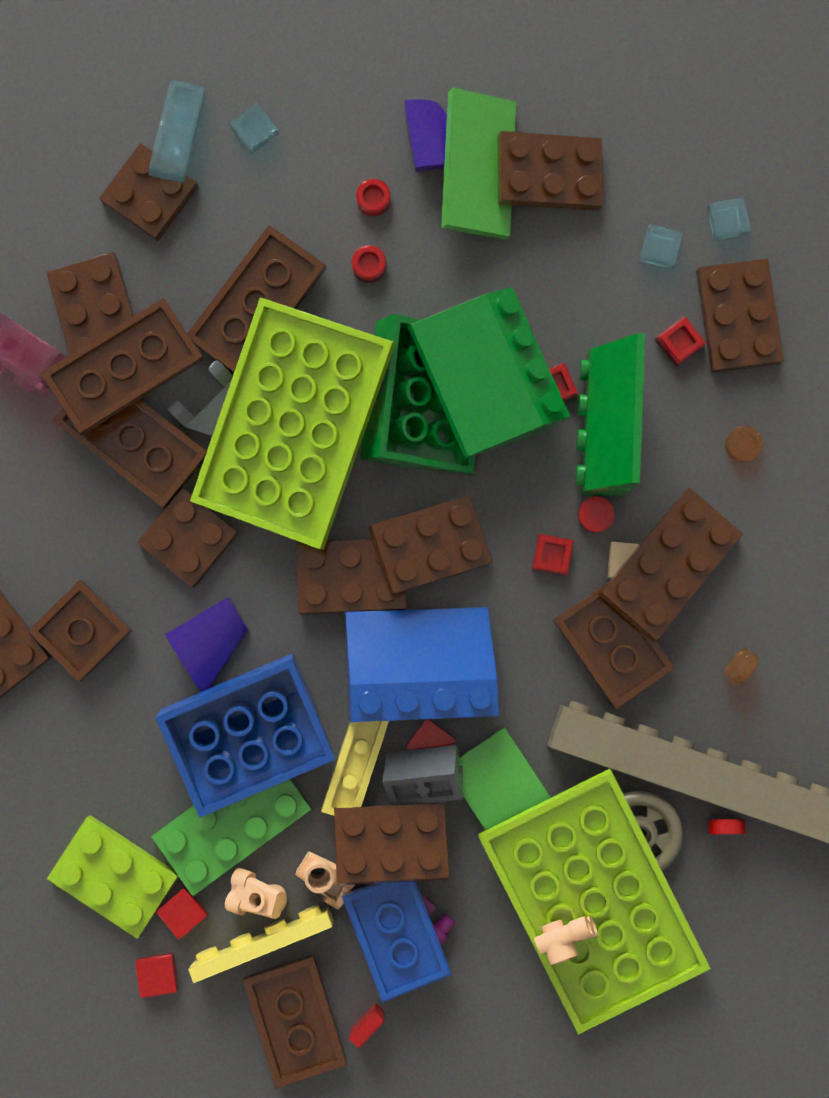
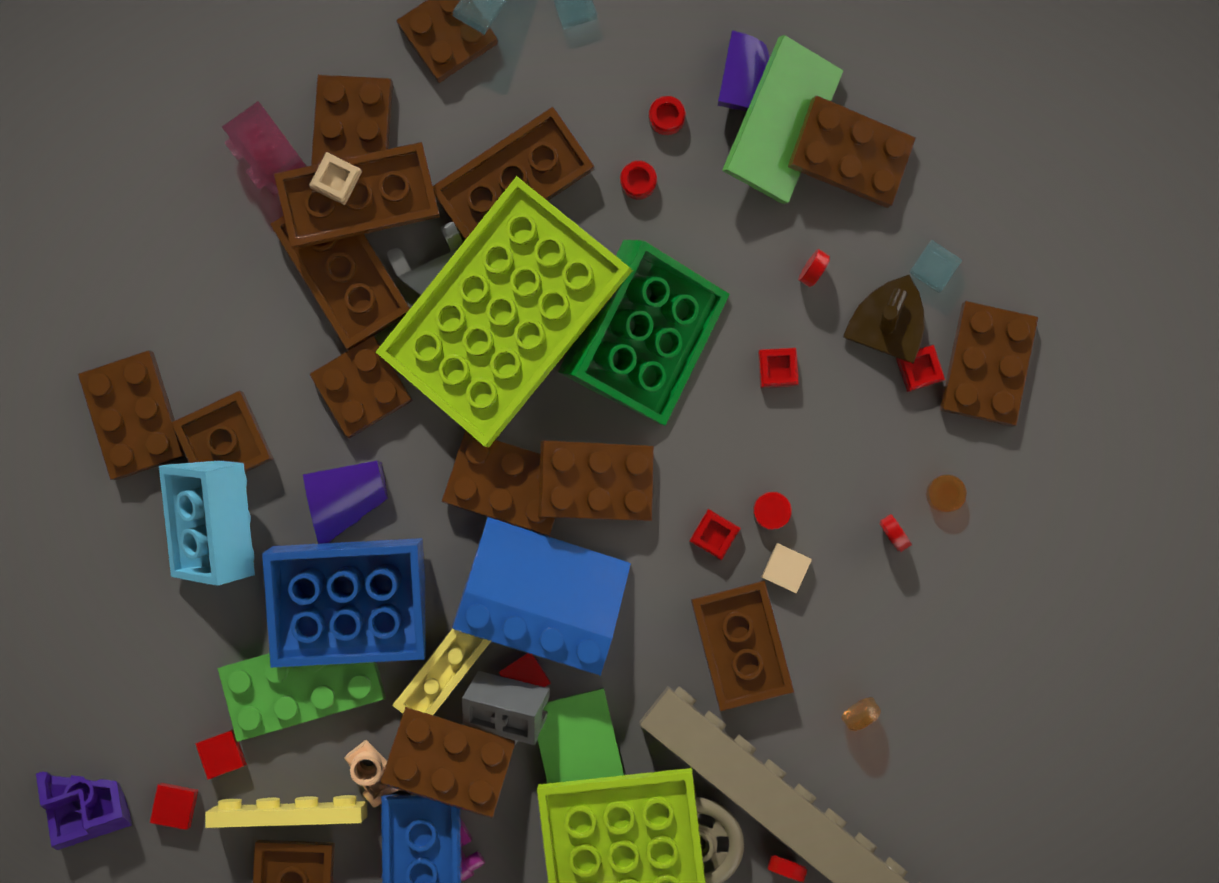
camera: 20 degrees right, 0 degrees up
(73, 1008) = (81, 808): none -> dark purple slope
(93, 707) = (207, 521): none -> medium azure slope
(97, 357) = (335, 178): none -> tan tile
(113, 876) = (167, 693): lime plate -> none
(254, 896) = (297, 764): light nougat plate -> none
(489, 372) = (715, 331): green slope -> none
(554, 286) = (814, 268): none -> red tile
(611, 418) = (820, 420): green slope -> none
(638, 306) = (890, 320): none -> dark brown shield
(670, 564) = (827, 587): reddish brown plate -> none
(712, 495) = (895, 533): none -> red tile
(728, 218) = (1014, 262): clear light blue tile -> none

